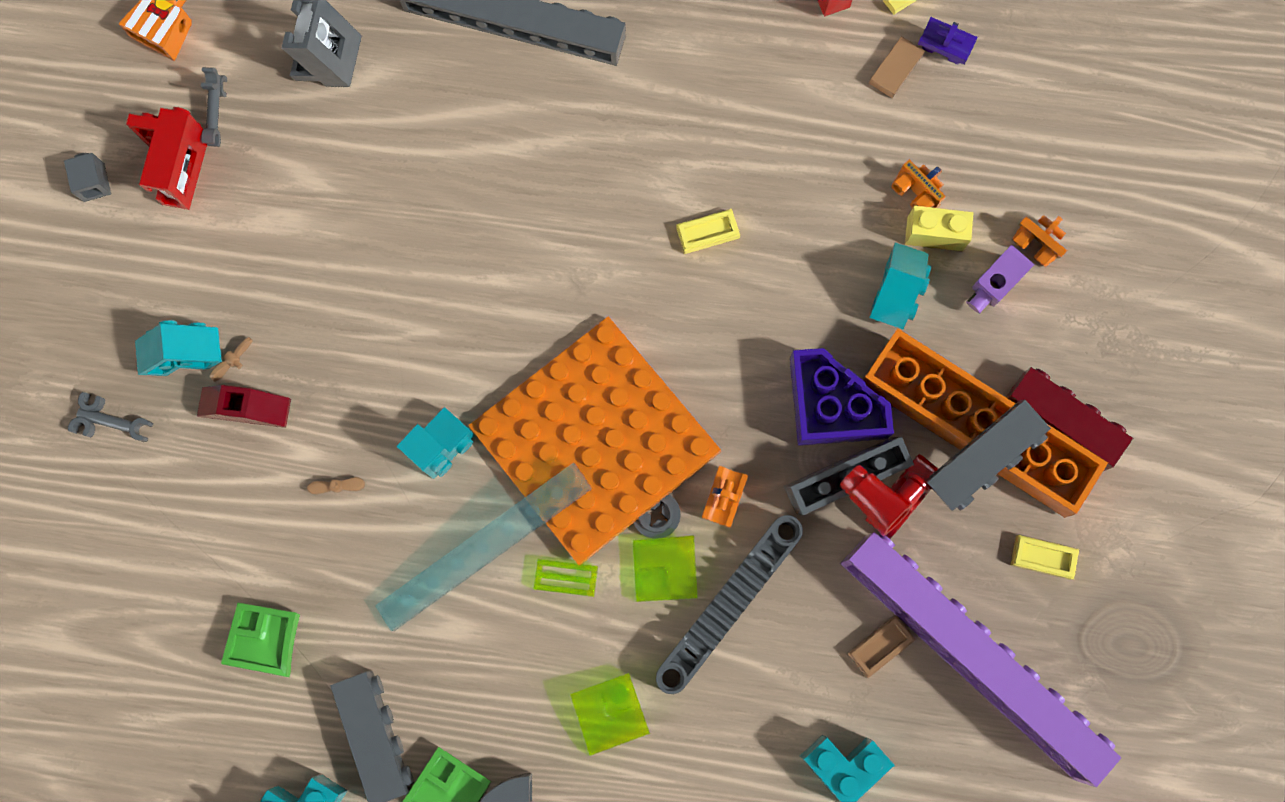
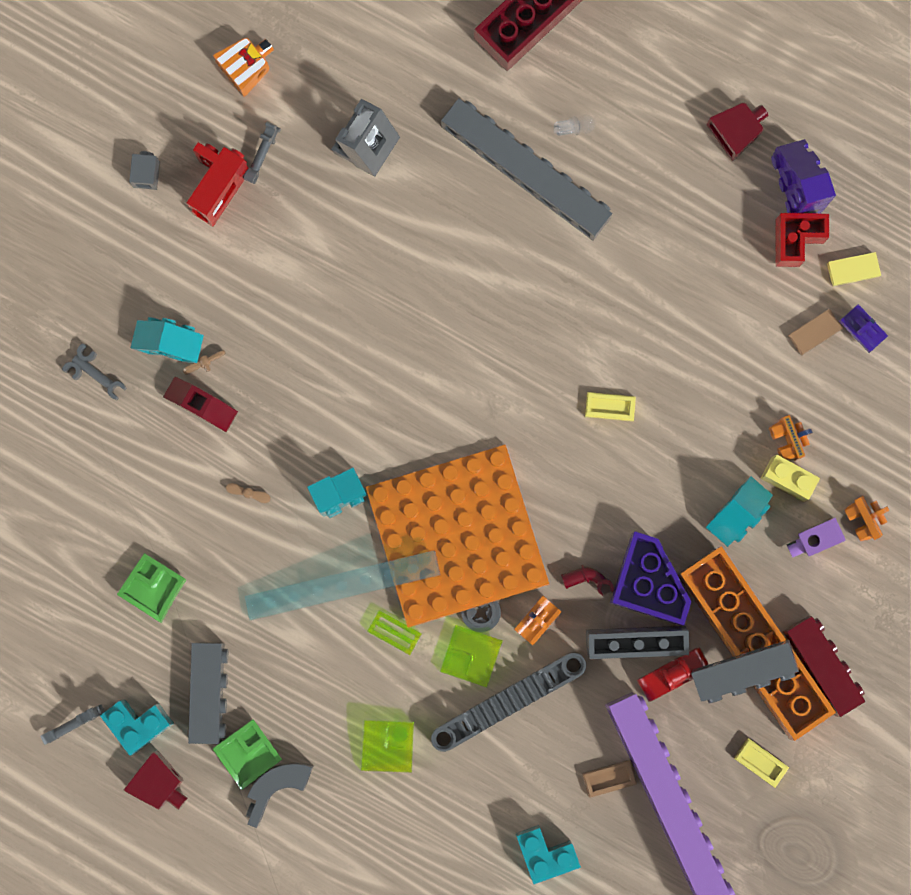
camera: 20 degrees right, 5 degrees up
(758, 424) = (586, 574): none -> dark red piece
(875, 499) = (647, 670): red plant -> none

